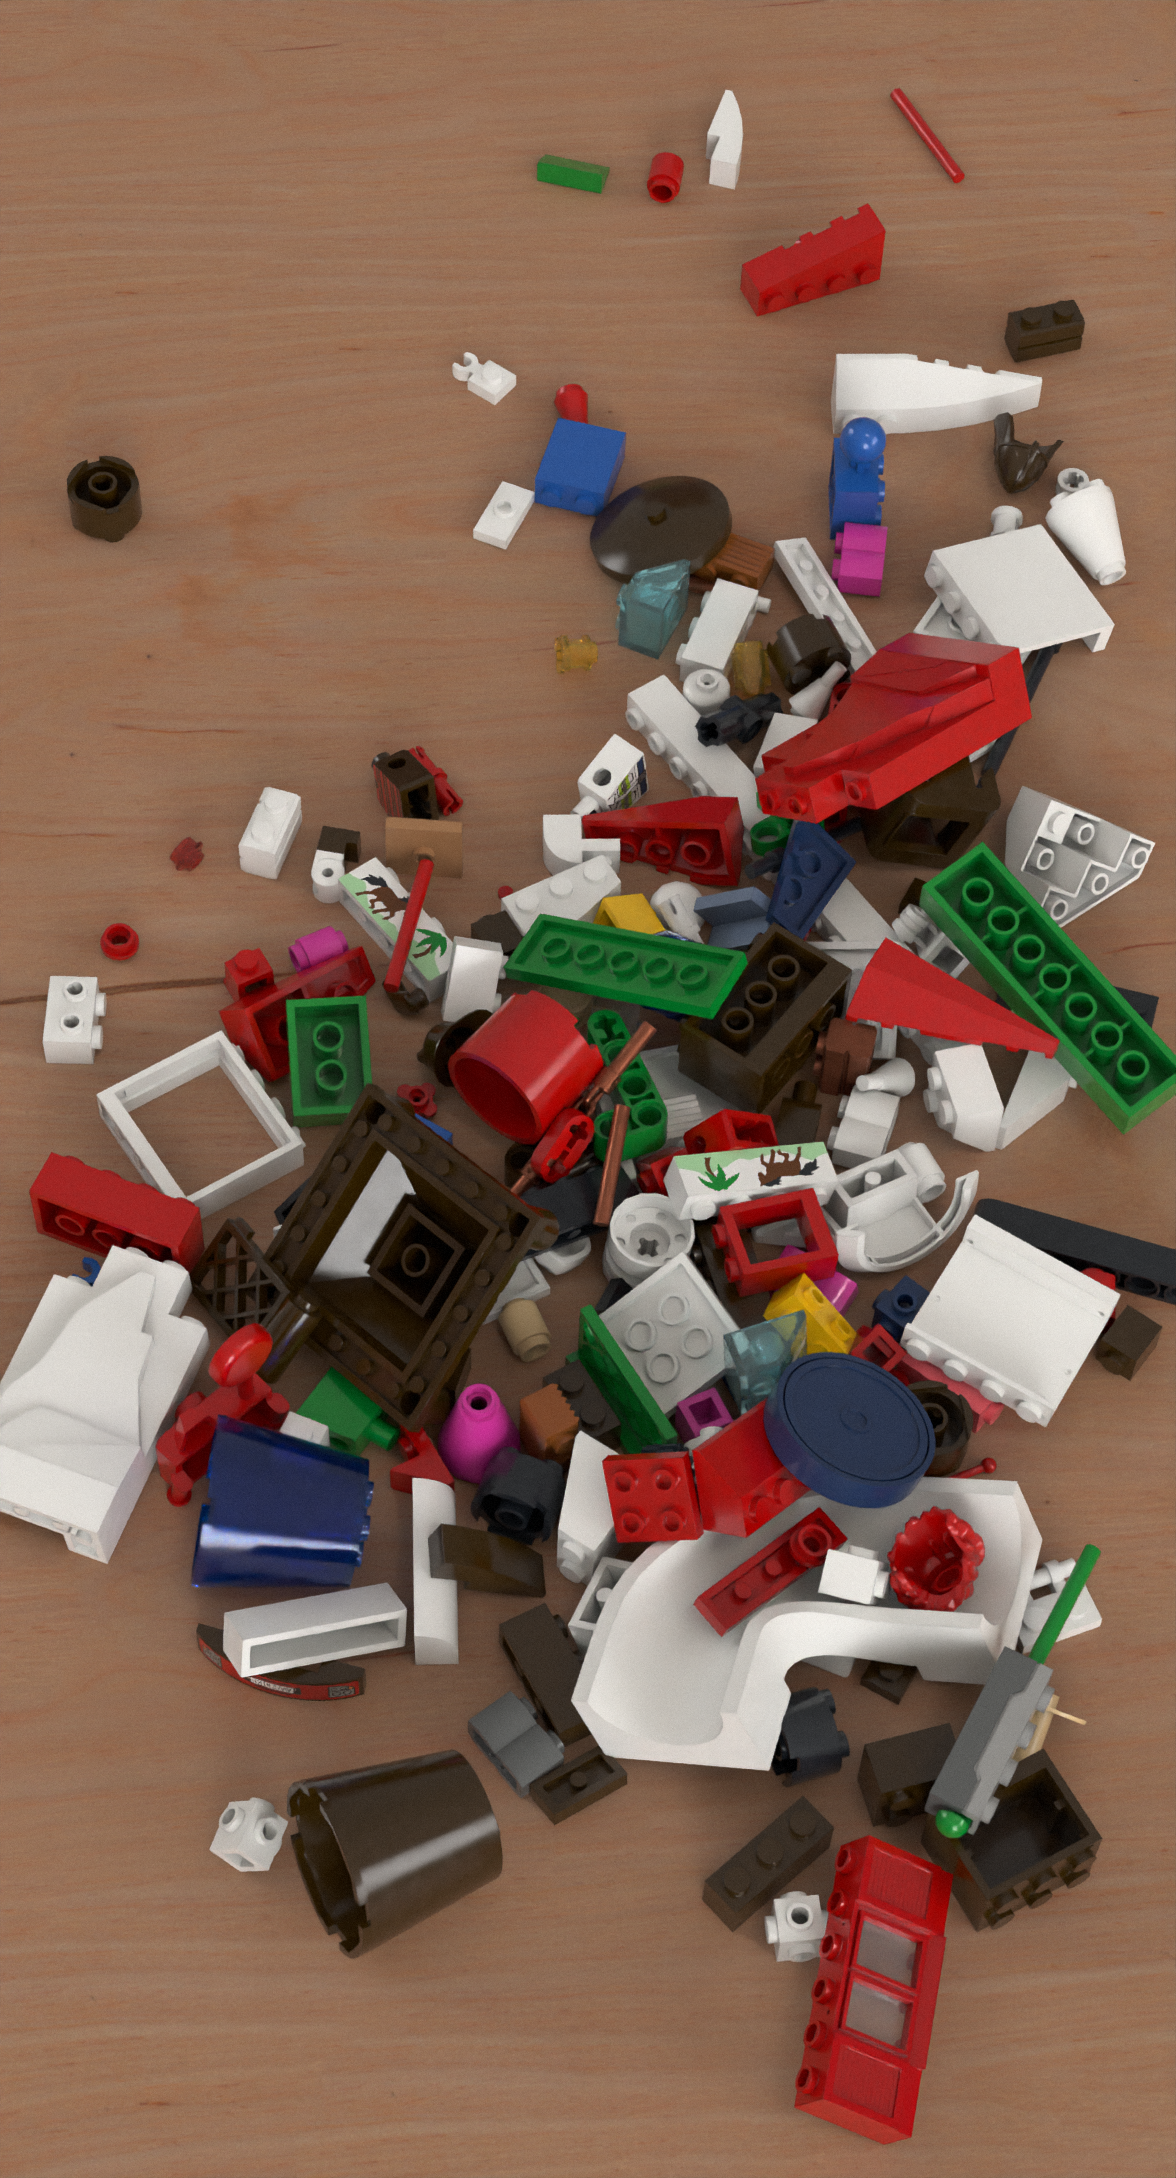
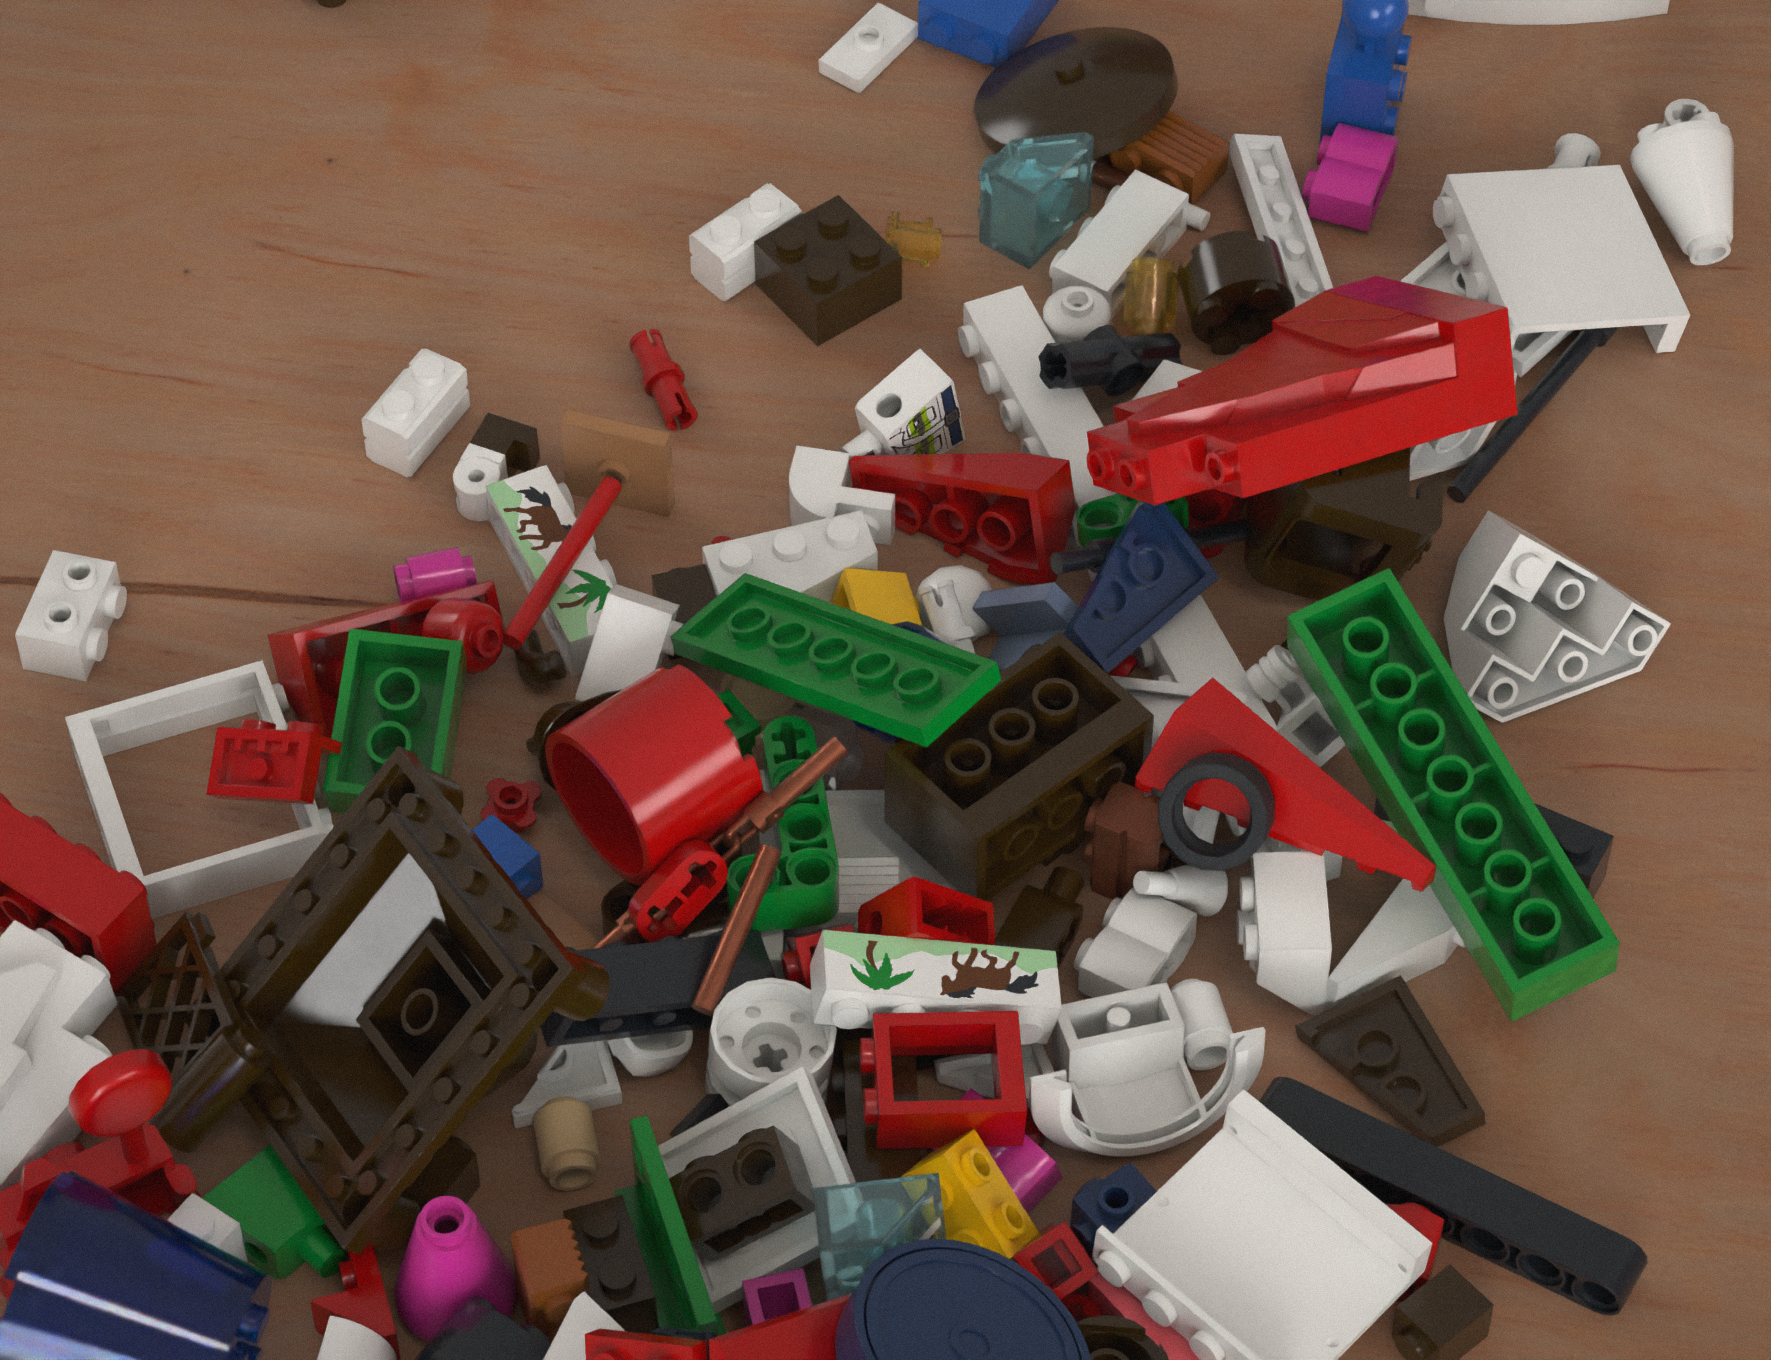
camera: 15 degrees right, 5 degrees down
(116, 934) = (169, 524): red plate -> none
(187, 854) = (296, 424): clear red plate -> none
(245, 969) = (322, 585): red brick -> none
(253, 1105) = (268, 762): none -> red bracket
(356, 981) = (469, 622): none -> red head
(405, 778) = (616, 368): dark brown torso -> none
(462, 672) = (725, 246): none -> white brick
(525, 683) = (828, 270): none -> dark brown brick
(669, 1353) = (745, 1206): none -> dark brown brick
(813, 698) = (1234, 339): white cone -> none
(914, 1057) = (1182, 838): none -> black tyre
(1015, 462) = (1610, 80): dark brown helmet -> none
(1053, 1173) = (1397, 1061): none -> dark brown wing

